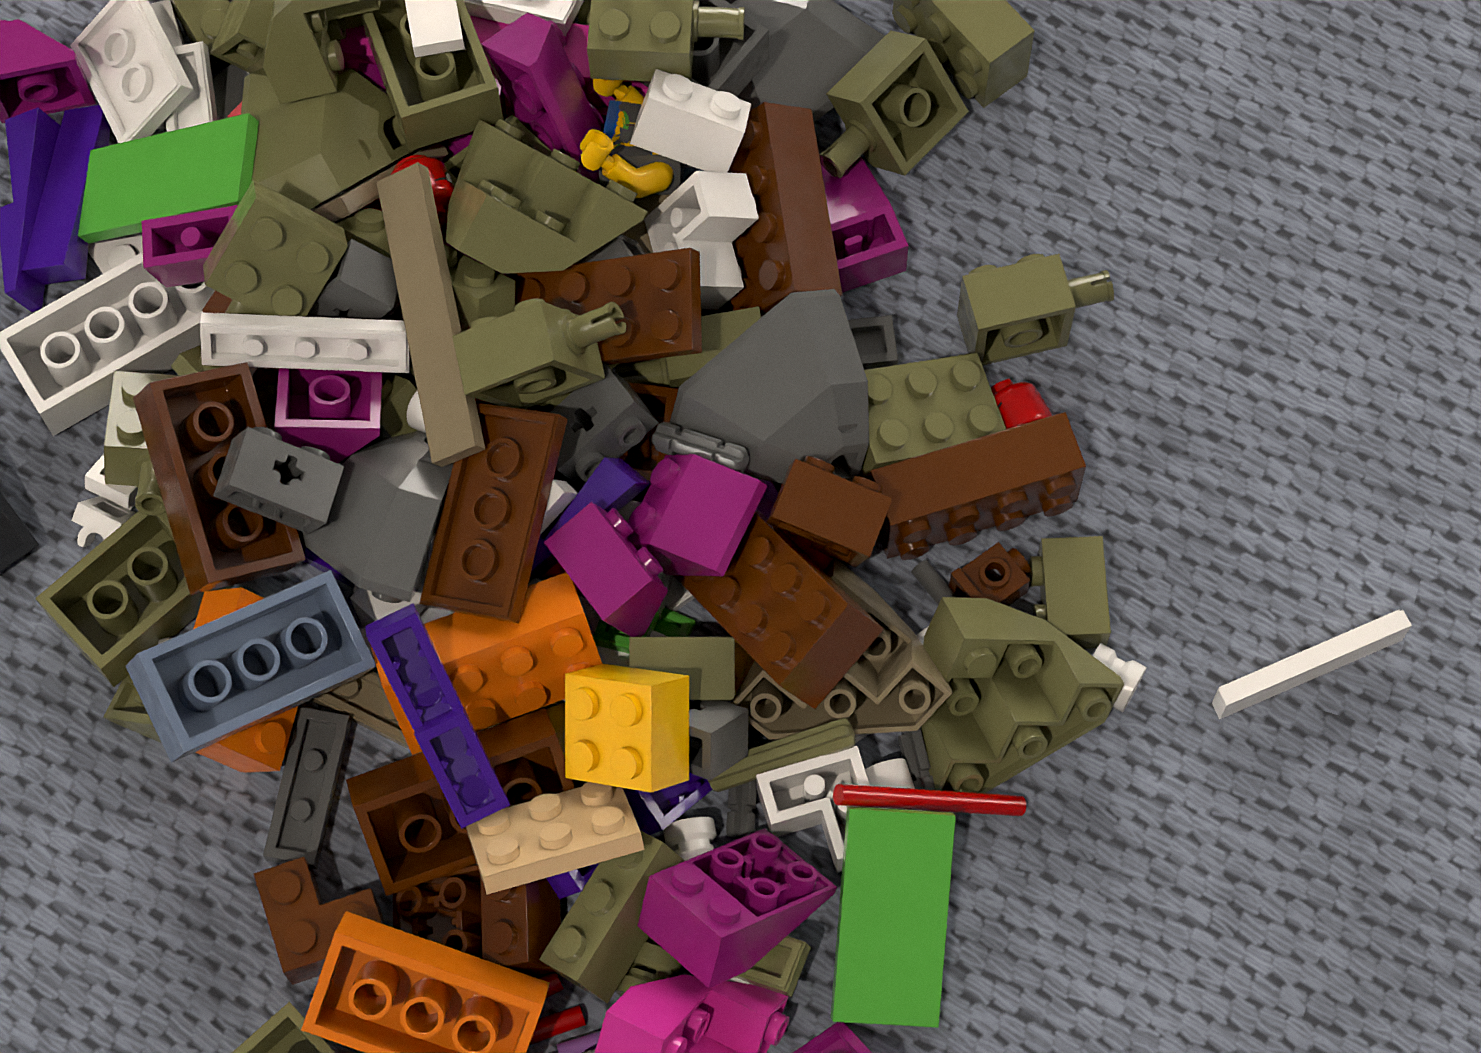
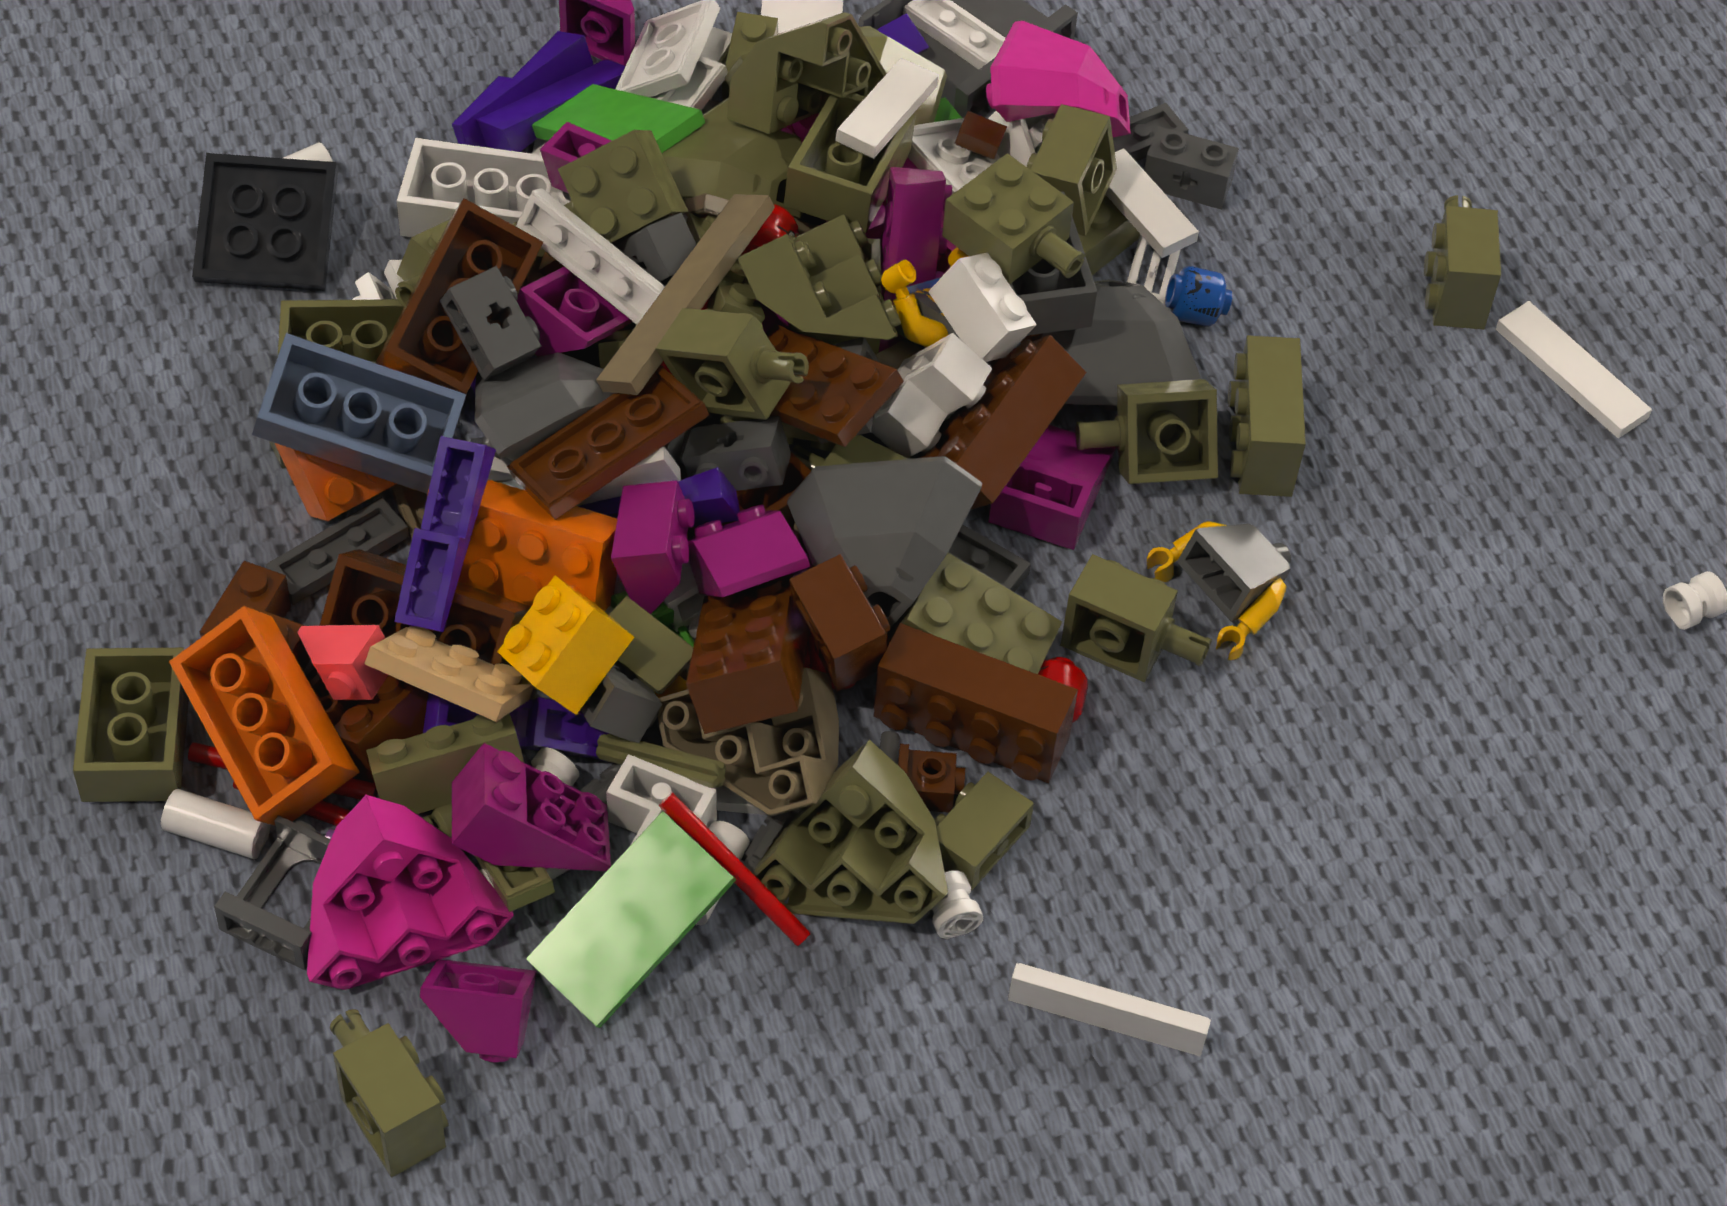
camera: 35 degrees right, 15 degrees down
(440, 892) = (340, 659): none -> coral slope
(671, 441) = (780, 499): dark grey axle -> none
(1059, 187) = (1234, 570): none -> dark grey torso

